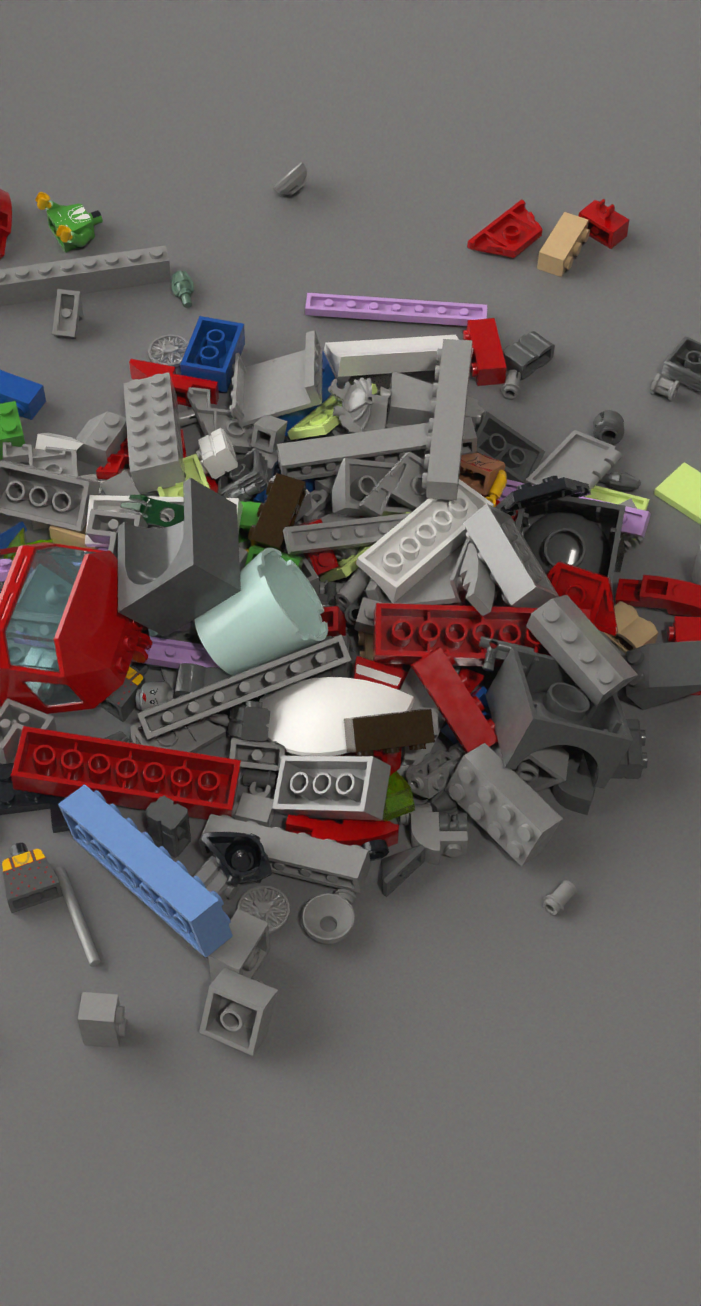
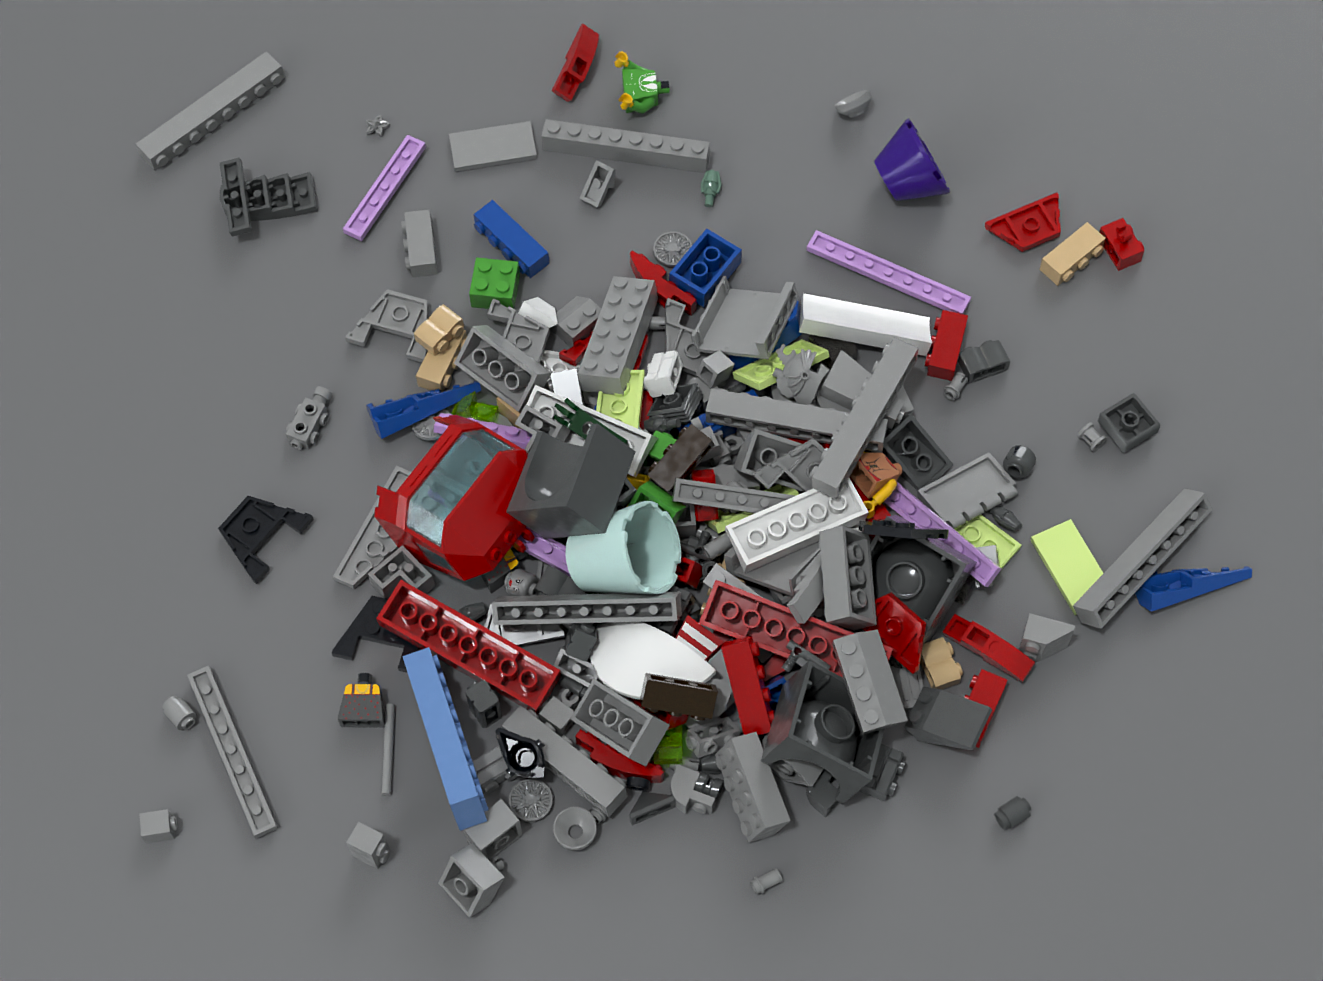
camera: 25 degrees right, 10 degrees up
(376, 207) = (909, 166): none -> dark purple cone

